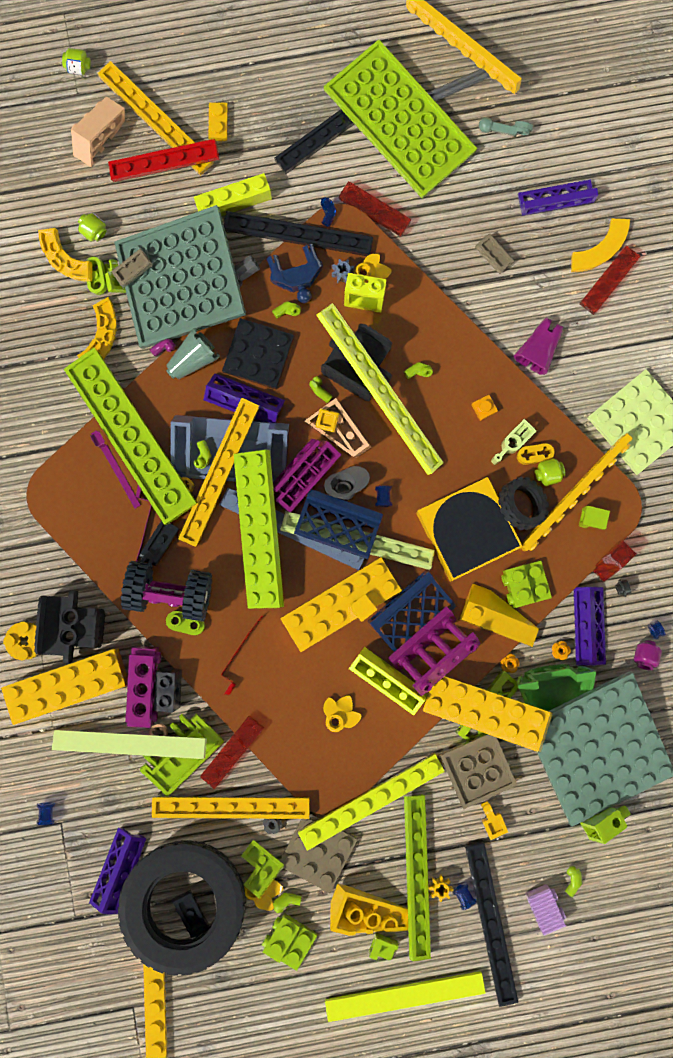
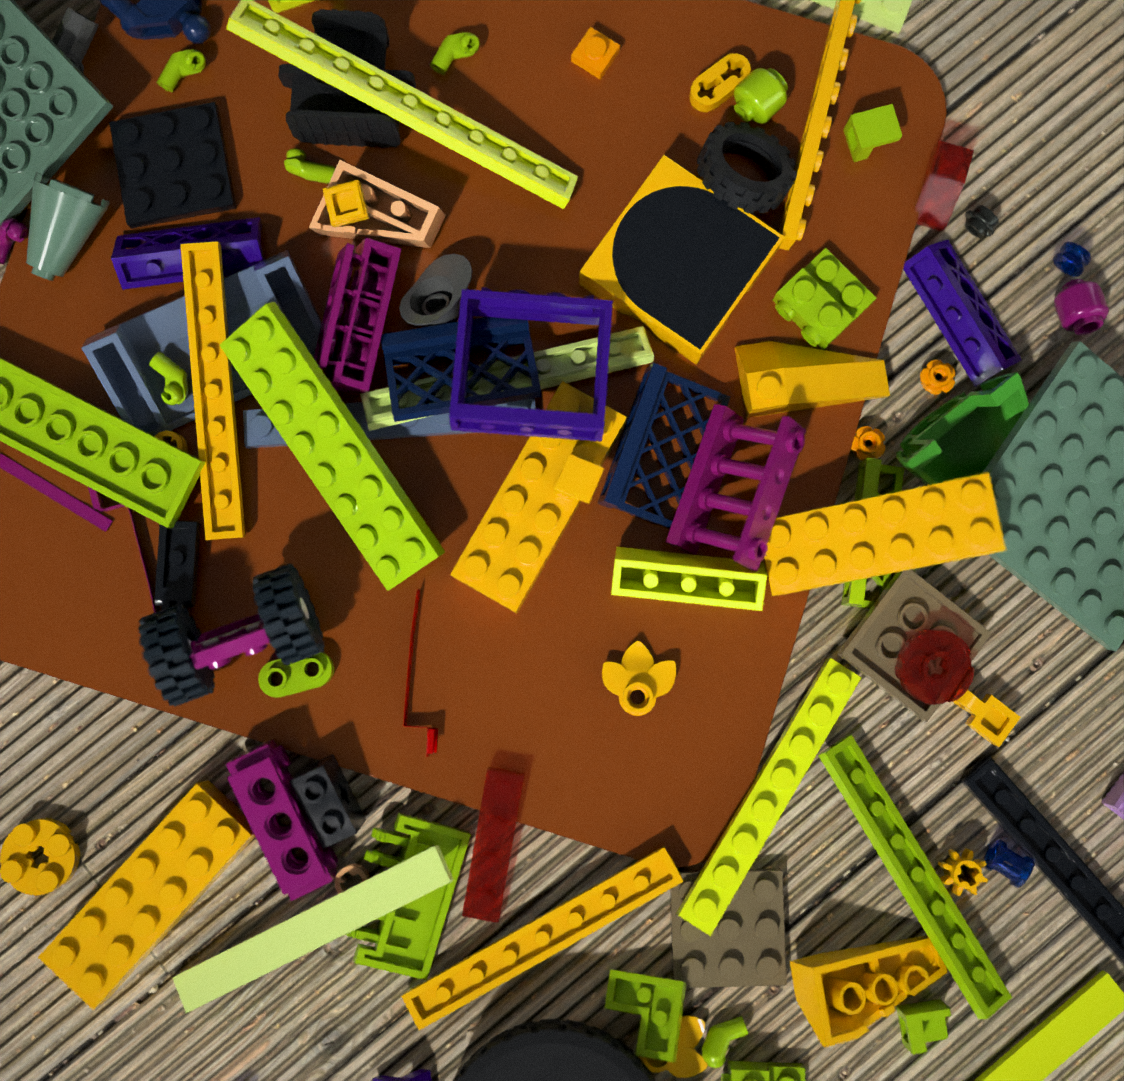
camera: 30 degrees left, 0 degrees up
(54, 625) = (73, 801): black piece -> none
(272, 829) = (627, 936): dark grey plate -> none
(353, 569) = (521, 421): none -> dark purple window
(383, 496) = (508, 278): clear blue bush -> none
(476, 796) = (955, 662): none -> clear red plate
(514, 436) = (674, 73): yellowish green piece -> none

